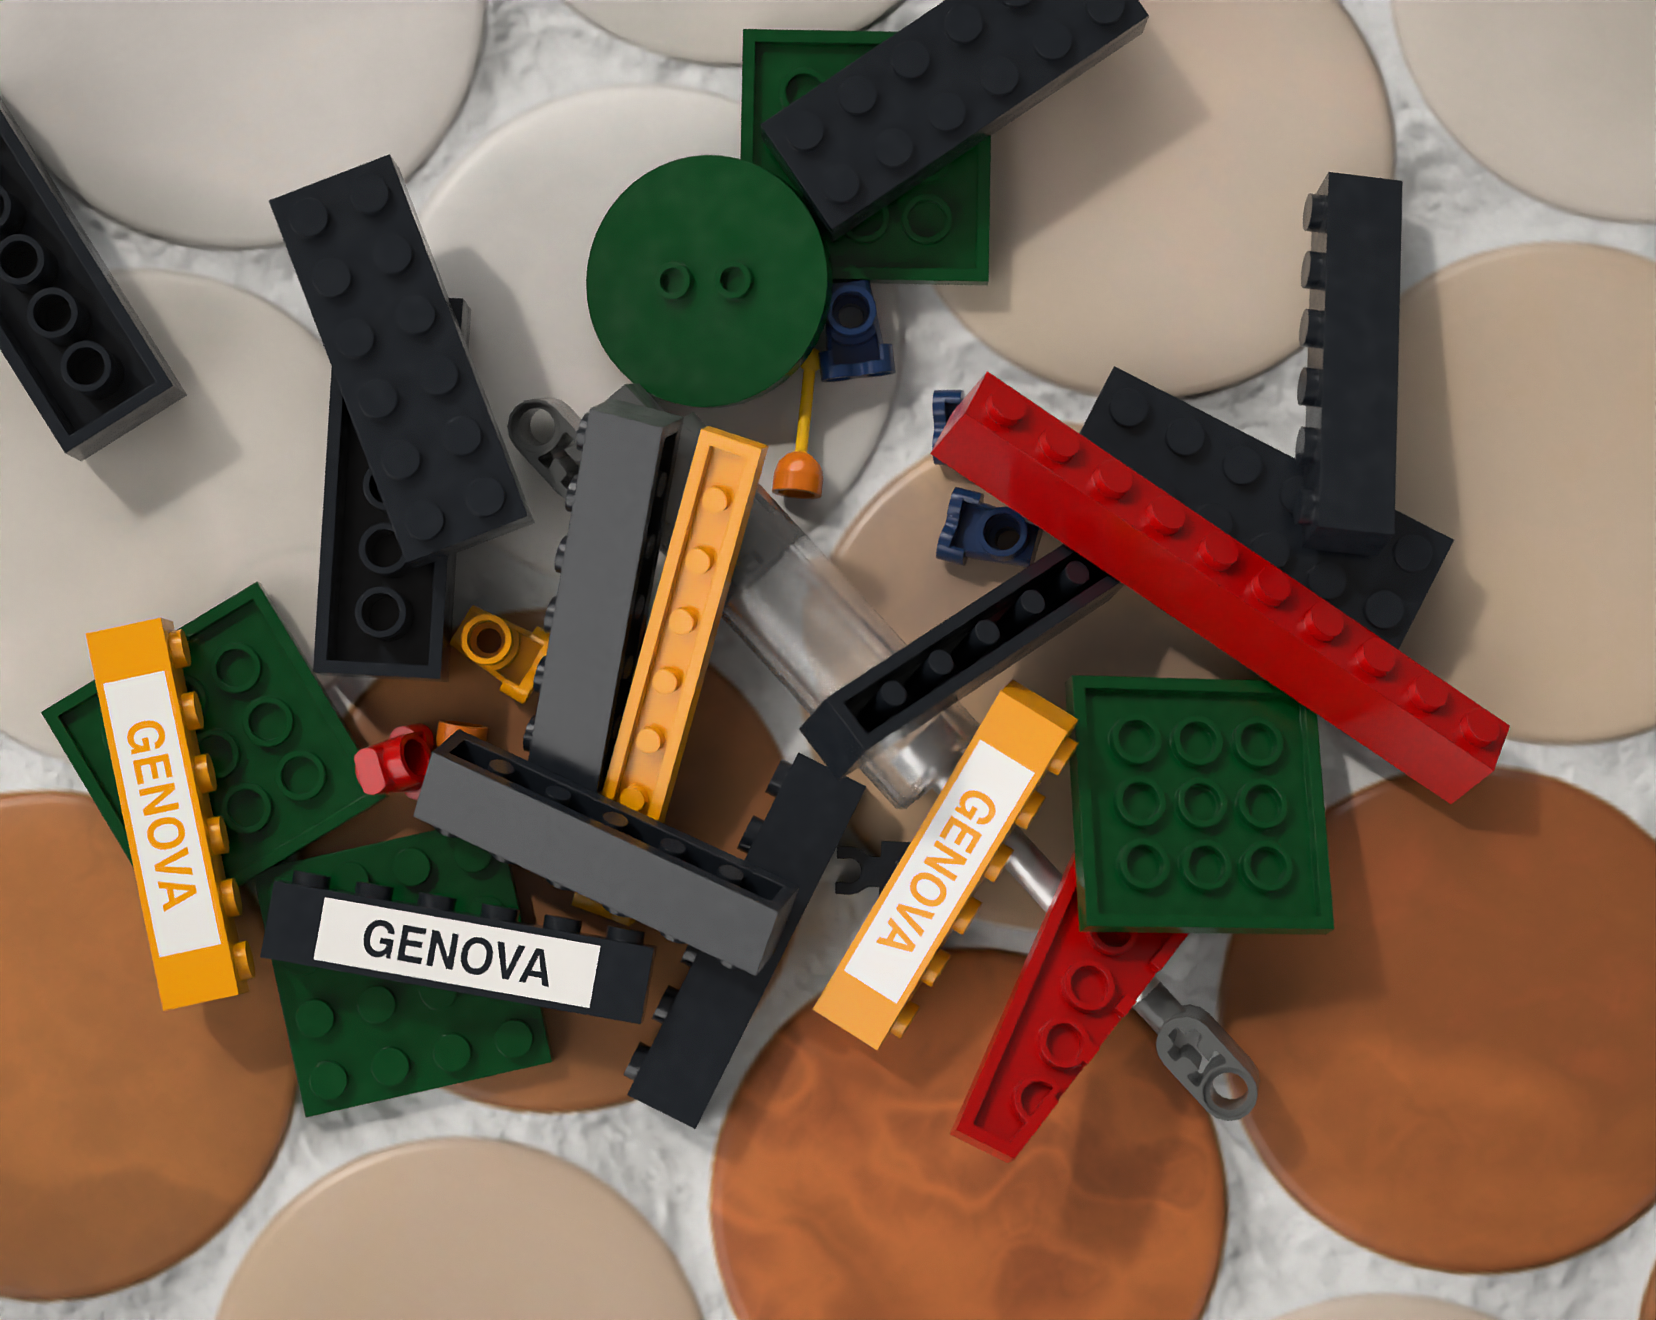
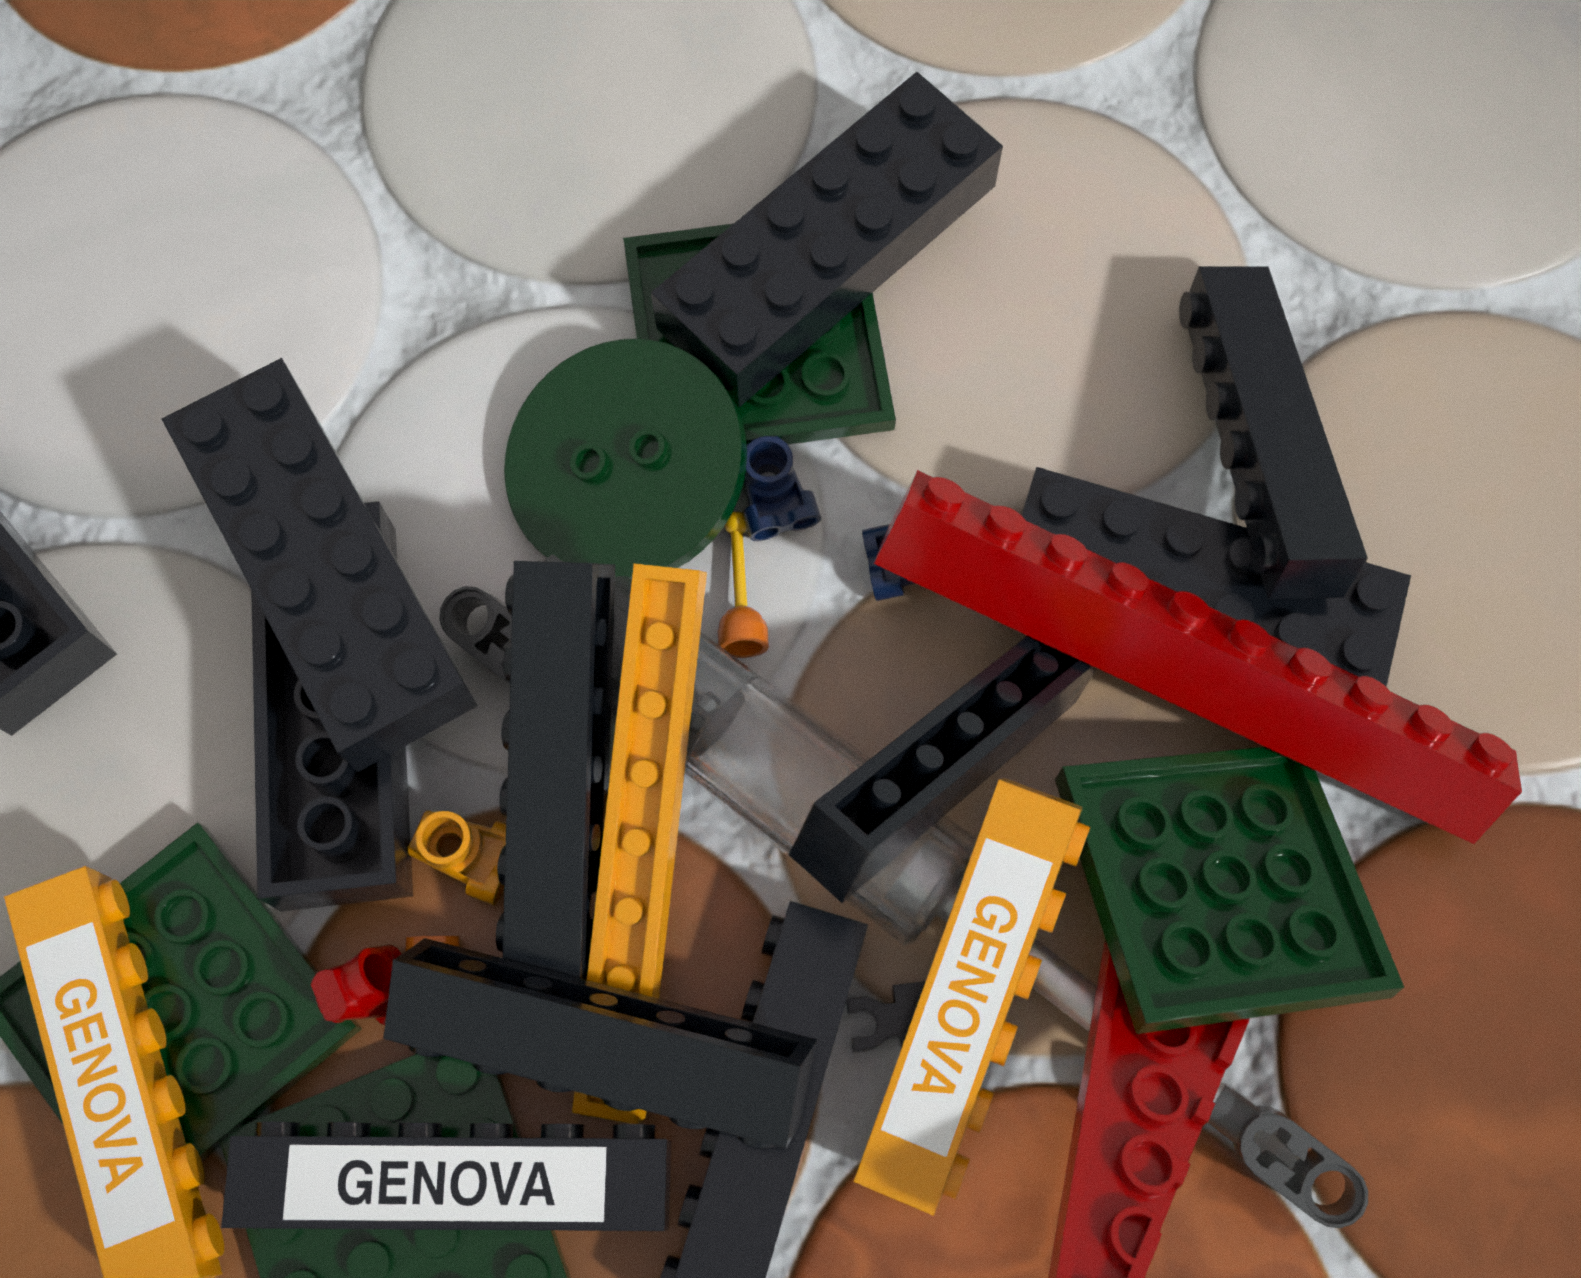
camera: 15 degrees left, 15 degrees down
(974, 530) = (928, 652): dark blue plate -> none

